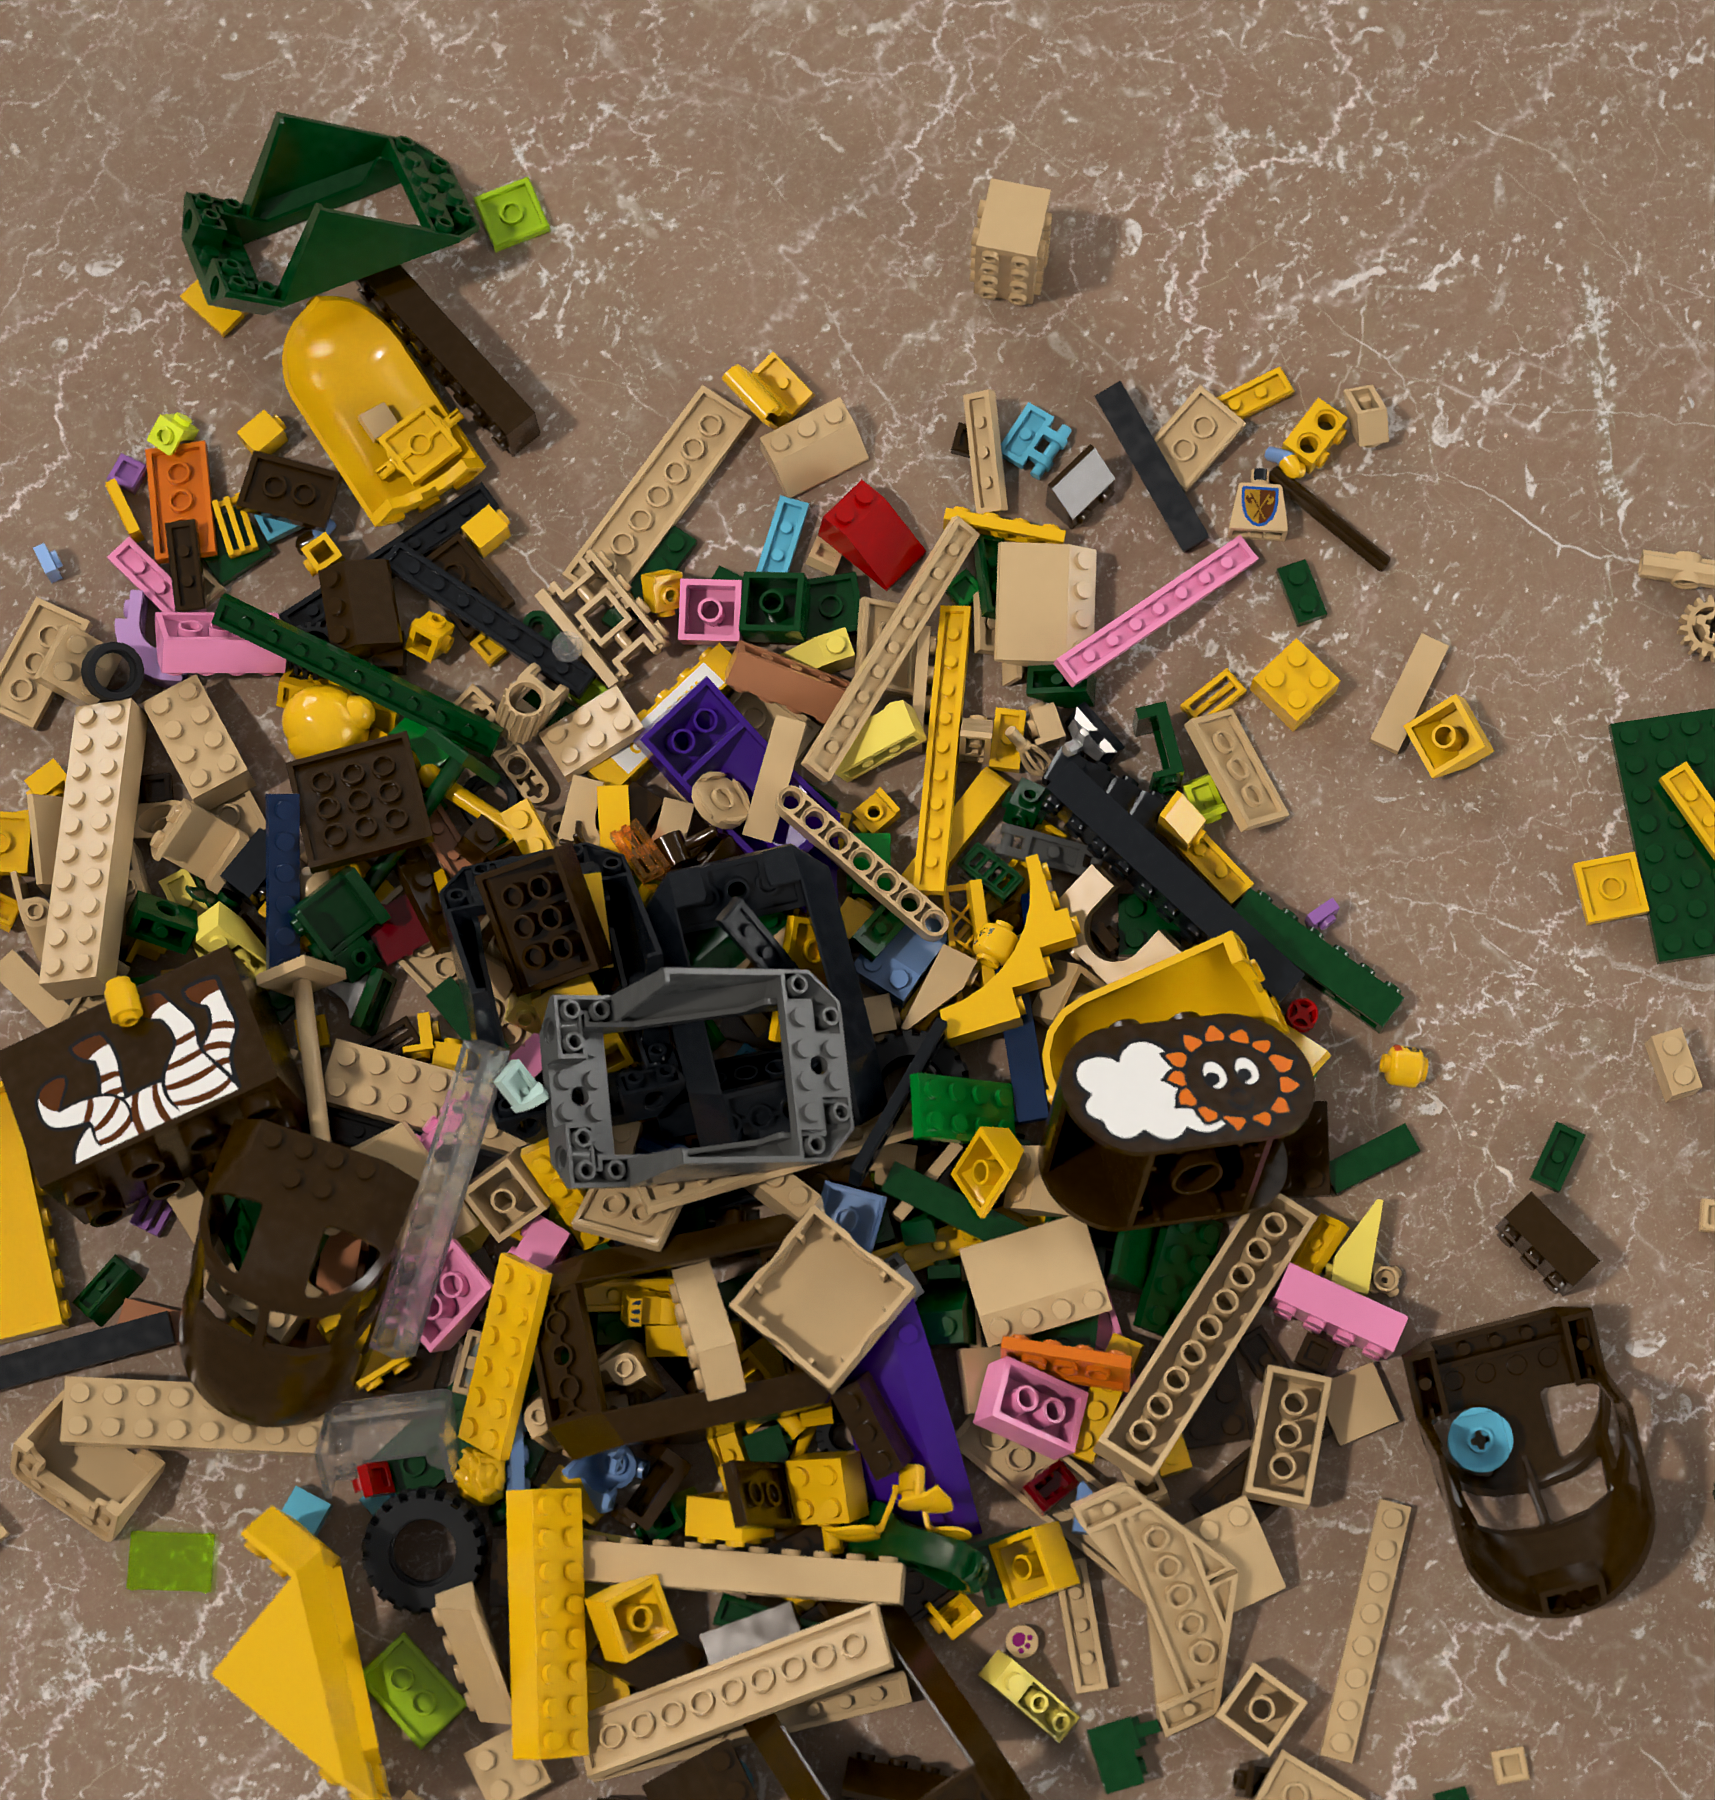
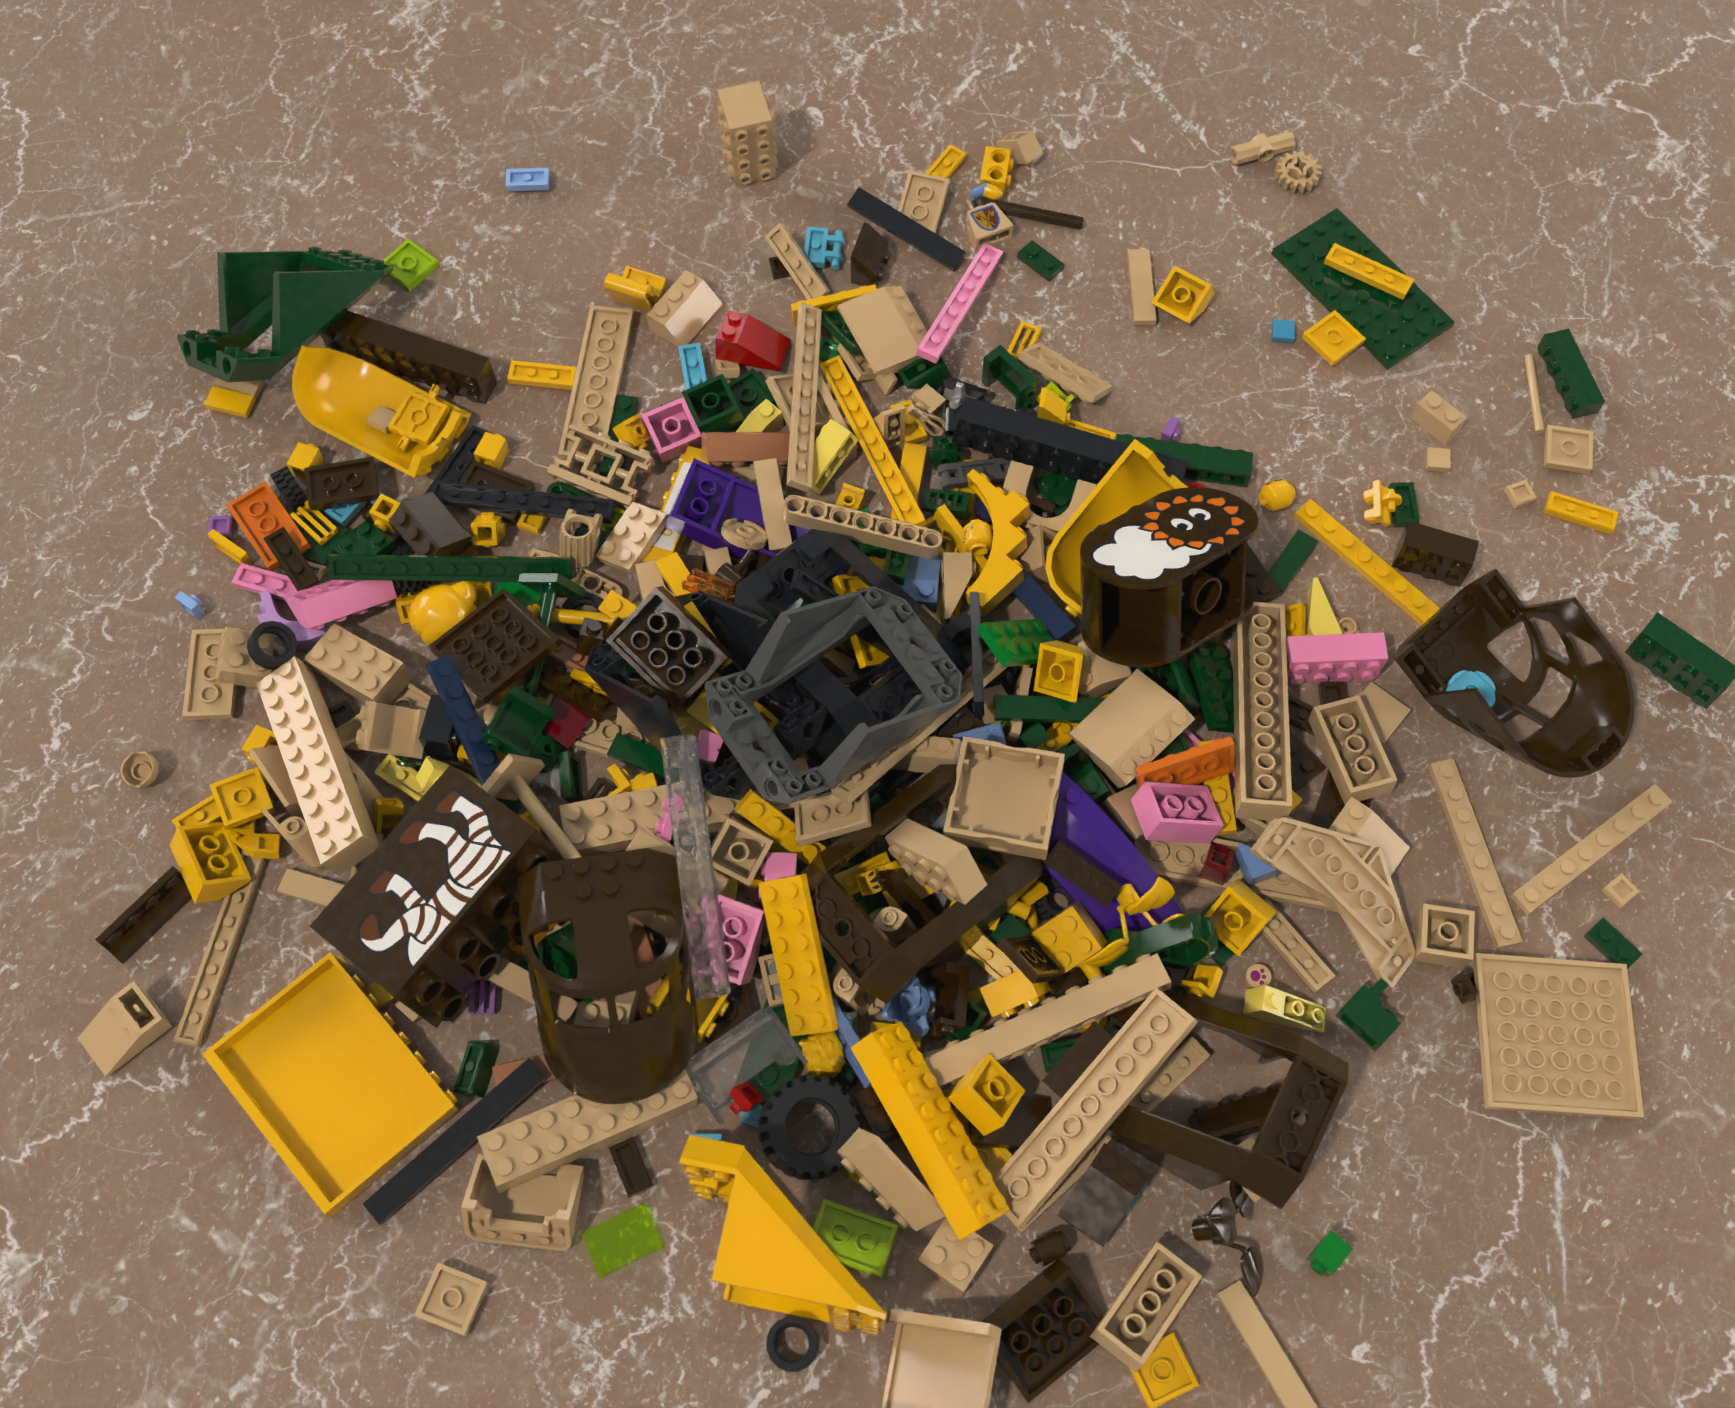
camera: 30 degrees left, 10 degrees down
(123, 1001) = (392, 837): yellow brick -> none
(161, 922) = (390, 791): dark green brick -> none
(170, 431) = (238, 486): neon yellow bracket -> none
(218, 1487) = (631, 1167): none -> dark brown tile
(225, 466) = (289, 488): none -> black tyre
(268, 1782) = (777, 1328): none -> black tyre
(278, 583) = (364, 540): none -> dark green plate
(520, 1087) = (714, 757): light aqua tile -> none
(567, 646) = (587, 490): clear plate -> none
(596, 453) = (541, 375): none -> yellow plate
(664, 1351) = (905, 897): none -> dark brown tile
(715, 160) = (527, 179): none -> light blue plate
(1294, 684) = (1070, 310): yellow brick -> none
(1464, 1207) = (1366, 562): none -> yellow plate
(1508, 1699) = (1591, 849): none -> tan plate
(1528, 1144) = (1384, 503): none -> yellow hips
(1553, 845) = (1283, 331): none -> dark azure tile
(1640, 1118) = (1438, 459): none -> tan tile

